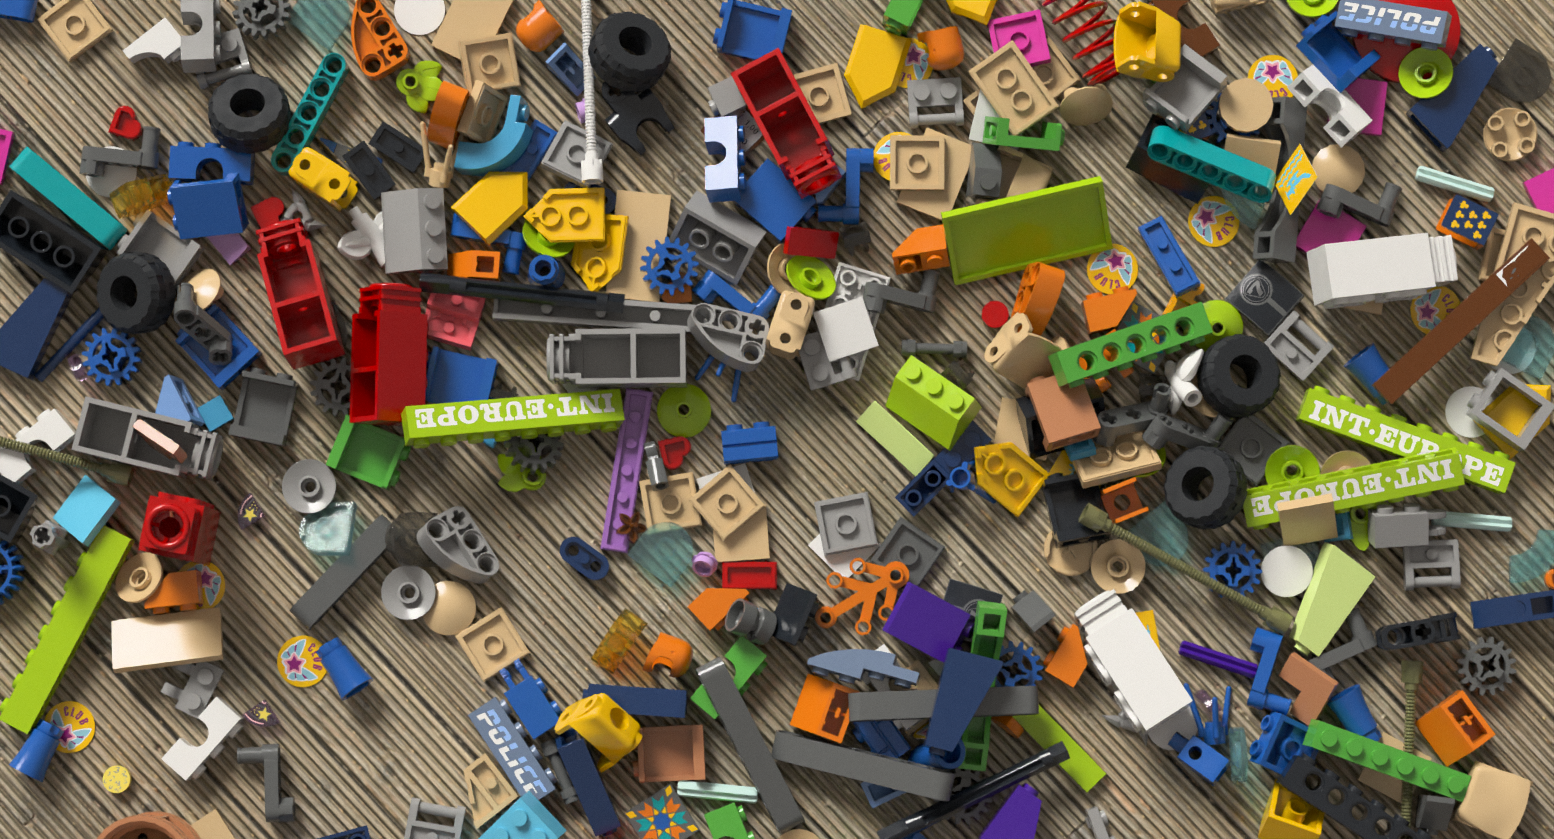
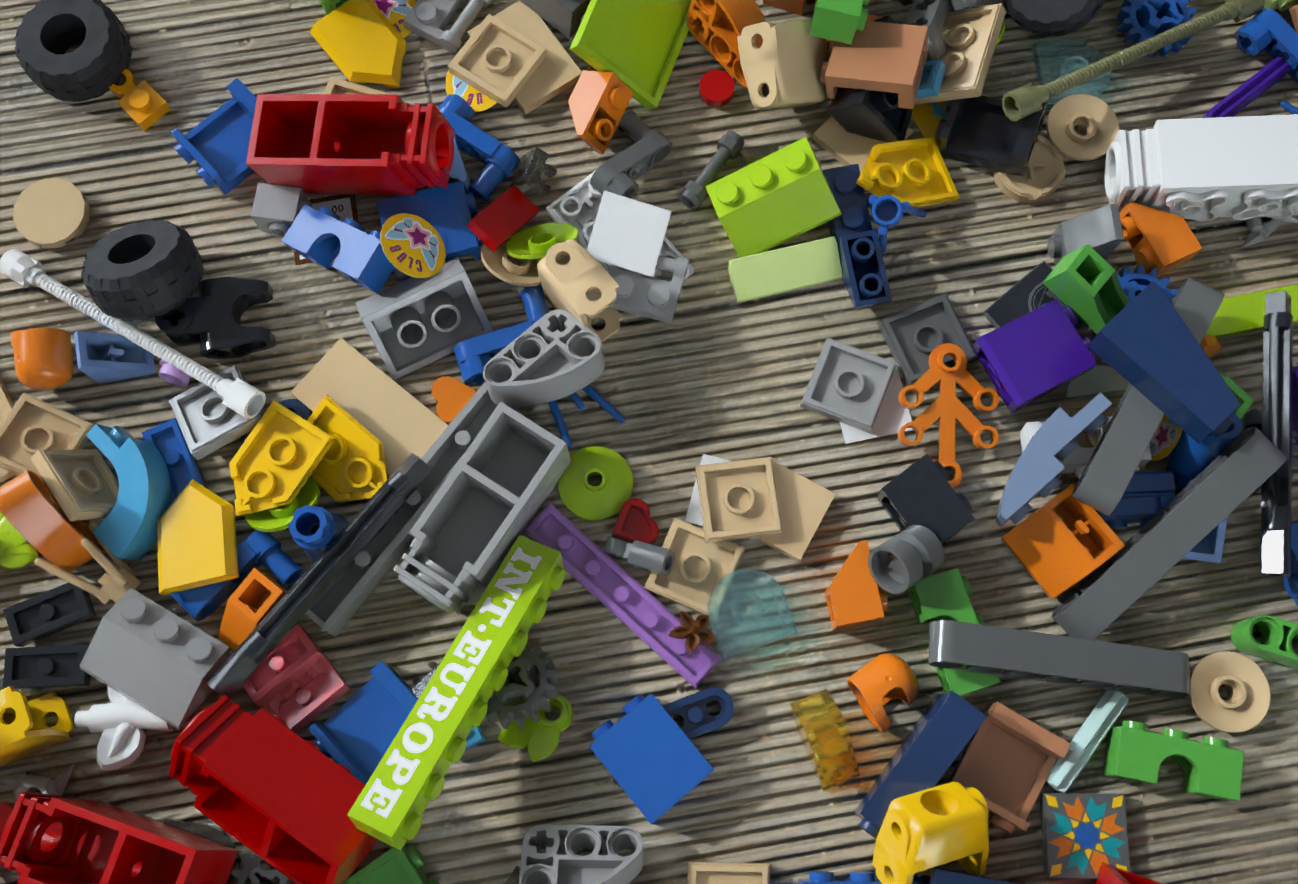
camera: 55 degrees left, 10 degrees down
(544, 547) = (650, 756): none -> blue panel
(657, 272) = (407, 373): blue gear -> none
(704, 564) = (794, 573): lavender plate -> none
(749, 444) = (686, 431): blue brick -> none
(749, 575) = (840, 532): red tile -> none
(750, 205) = (413, 245): none -> sticker
(1124, 488) = (998, 72): orange piece -> none

